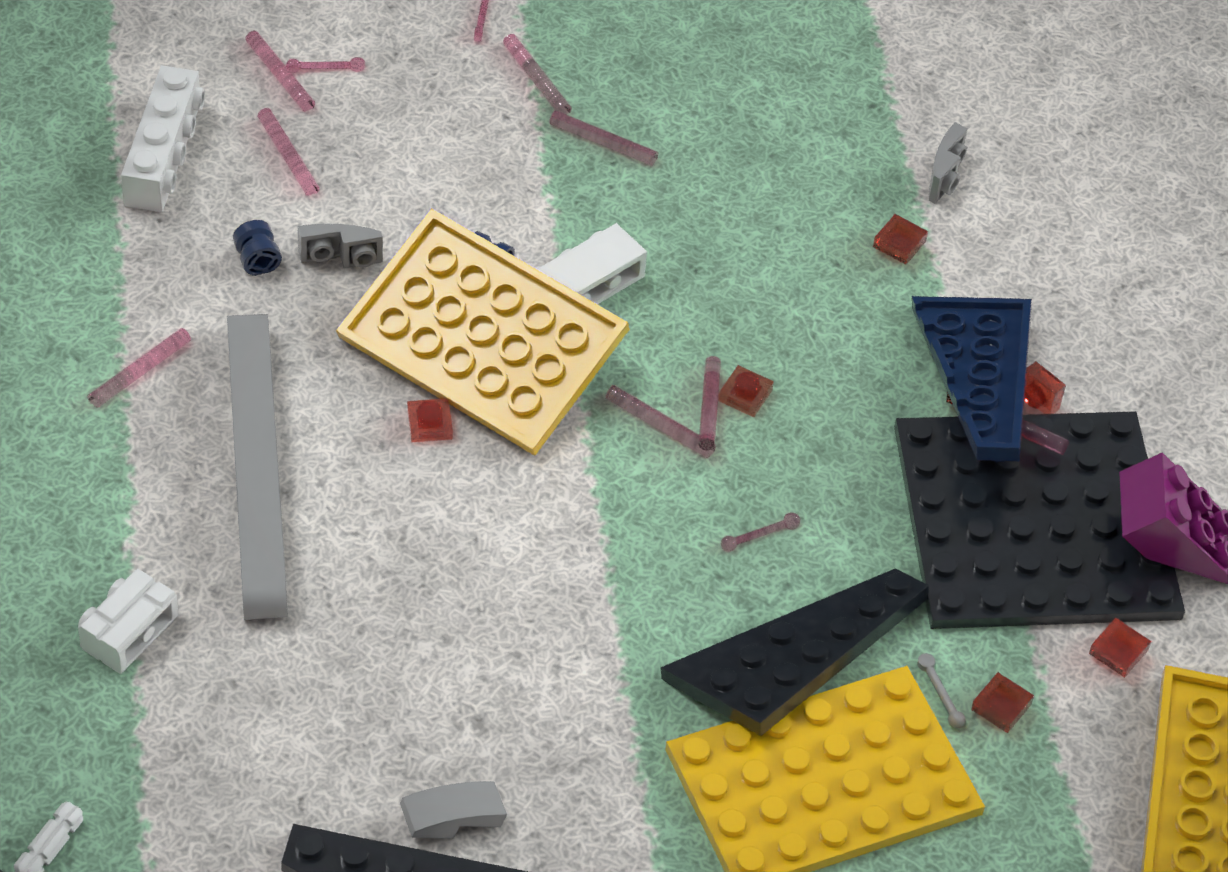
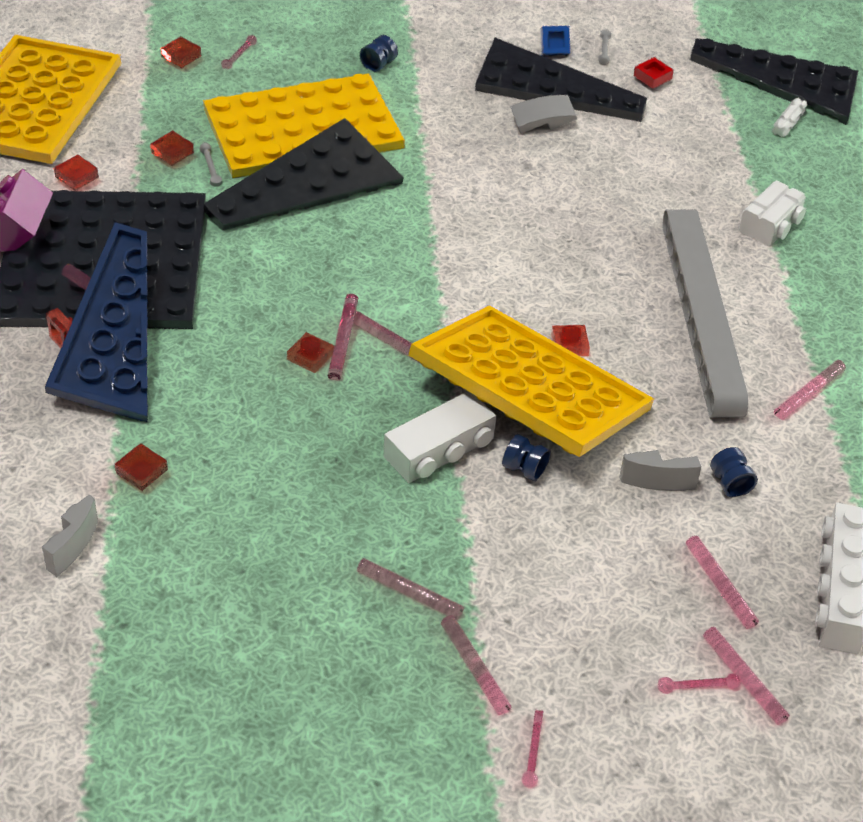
camera: 175 degrees left, 5 degrees down
(790, 521) = (293, 266): hinge -> none

